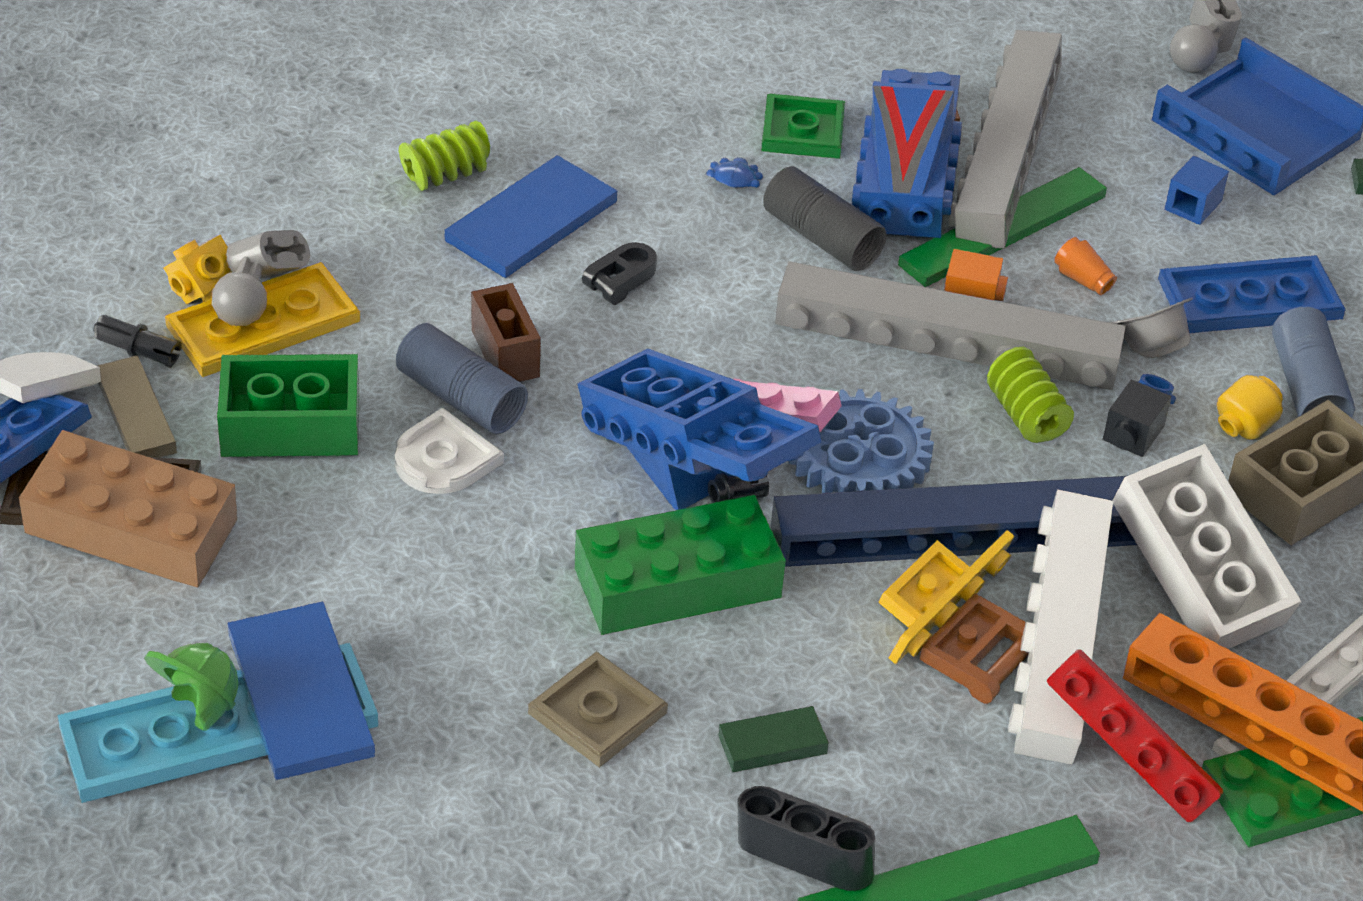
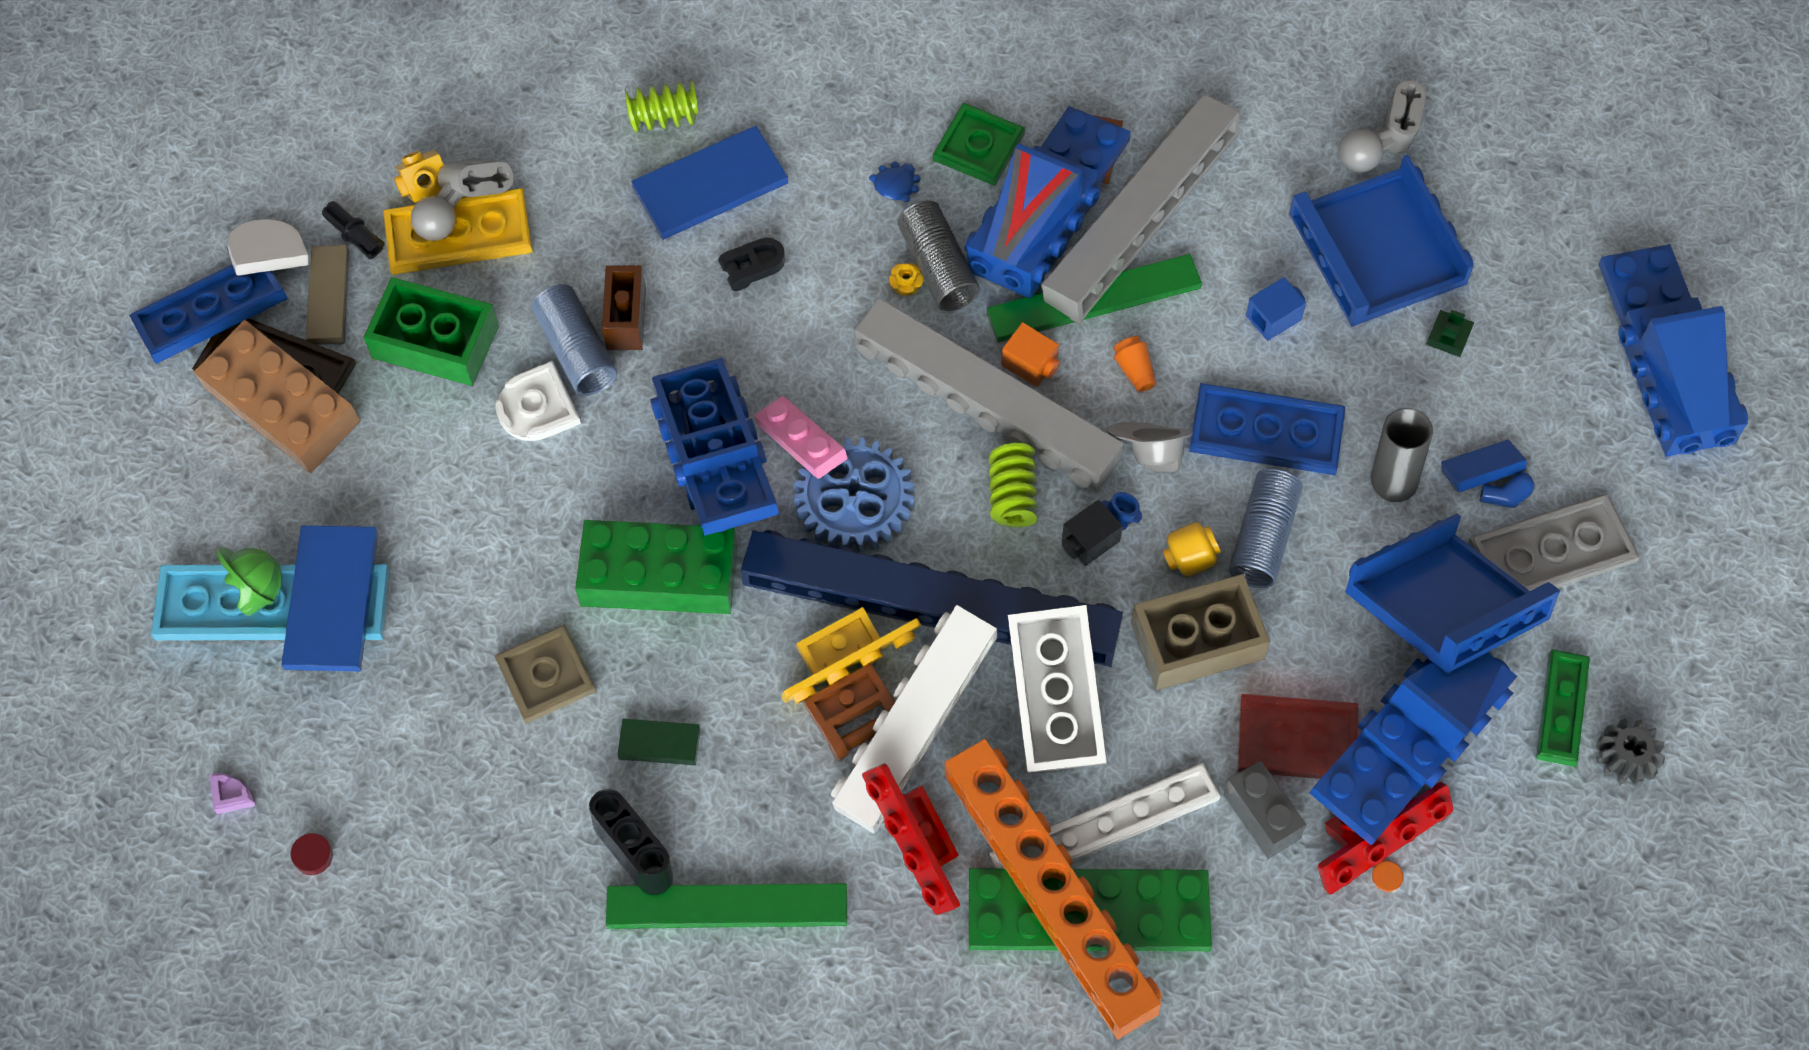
camera: 25 degrees right, 20 degrees up
(797, 249) = (906, 286): none -> yellow plate

